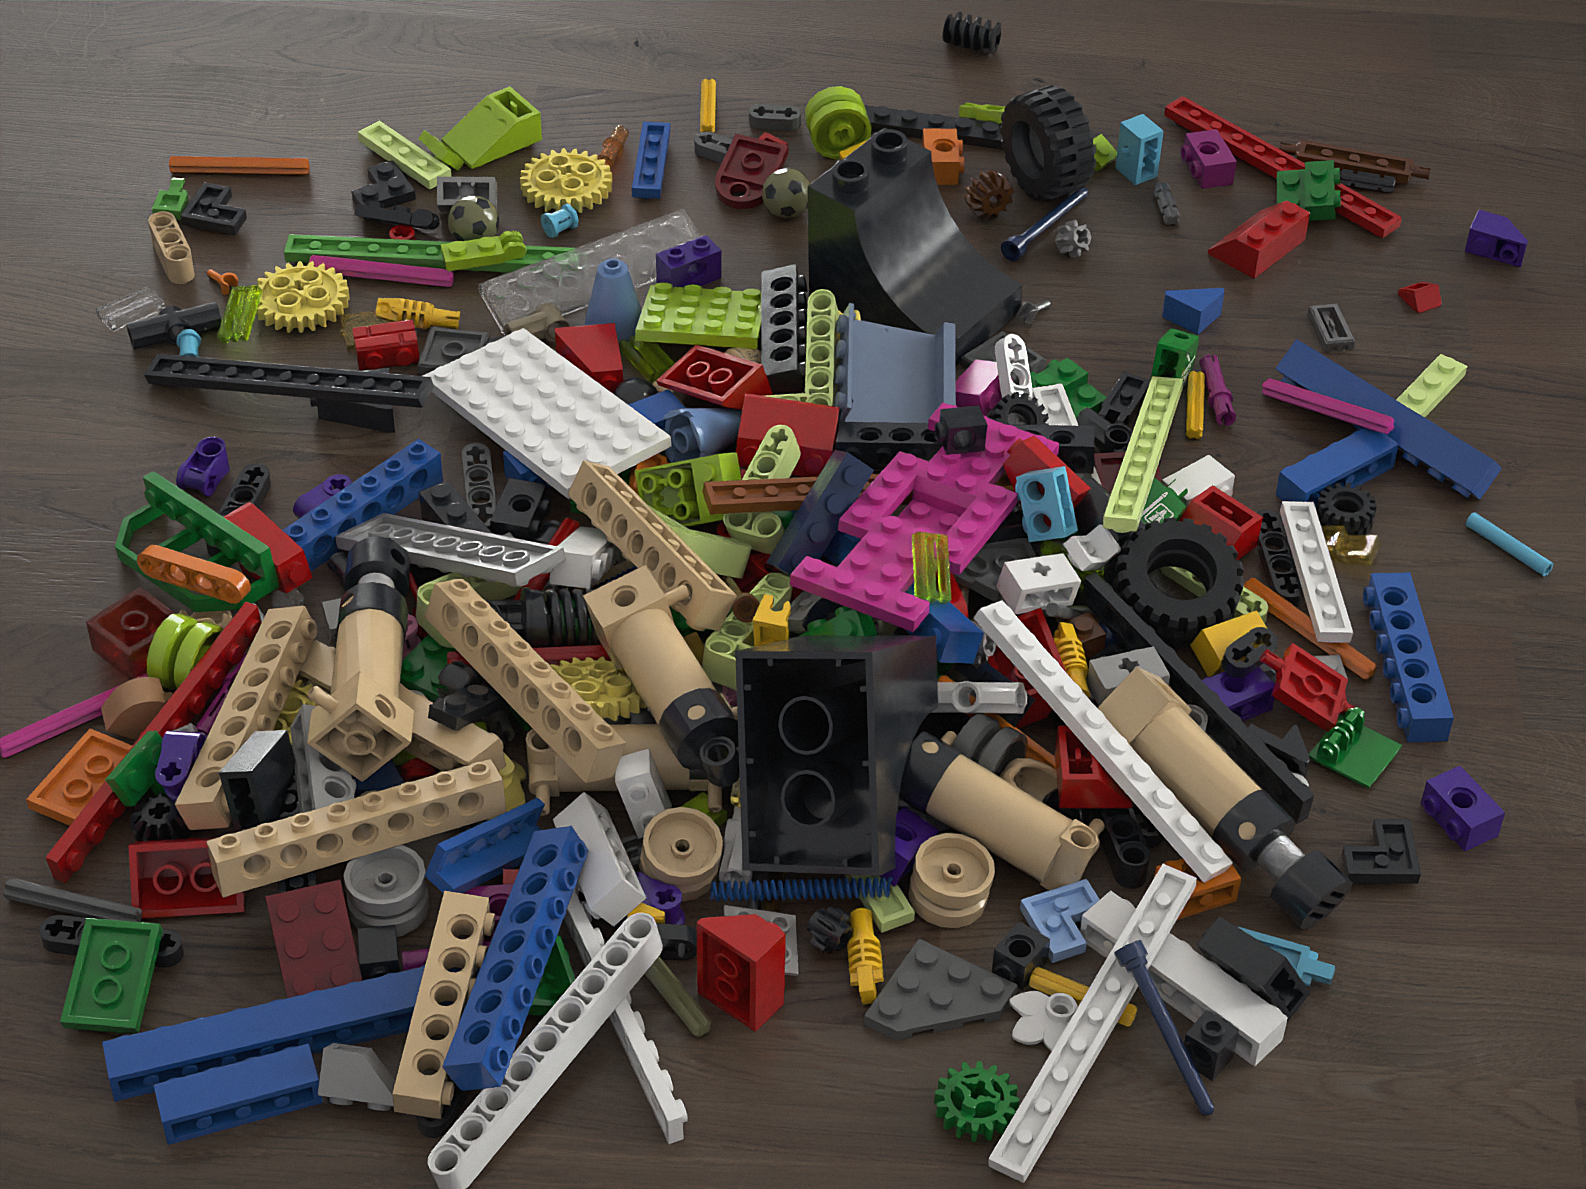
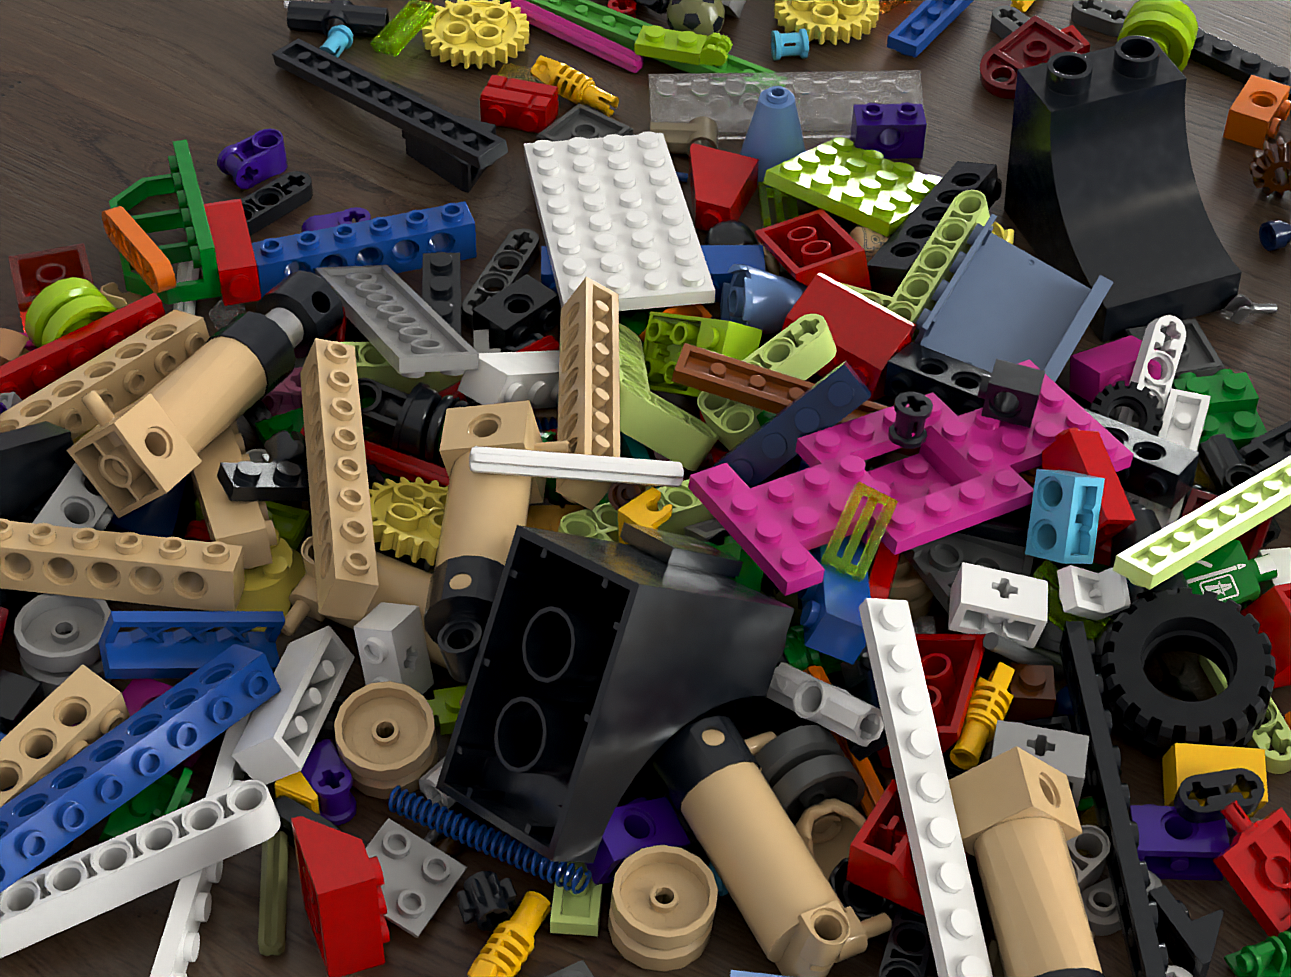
camera: 30 degrees right, 0 degrees up
(709, 600) = (575, 466): none -> white axle
(821, 629) = (681, 550): none -> black tile
(913, 471) = (910, 420): none -> black bush

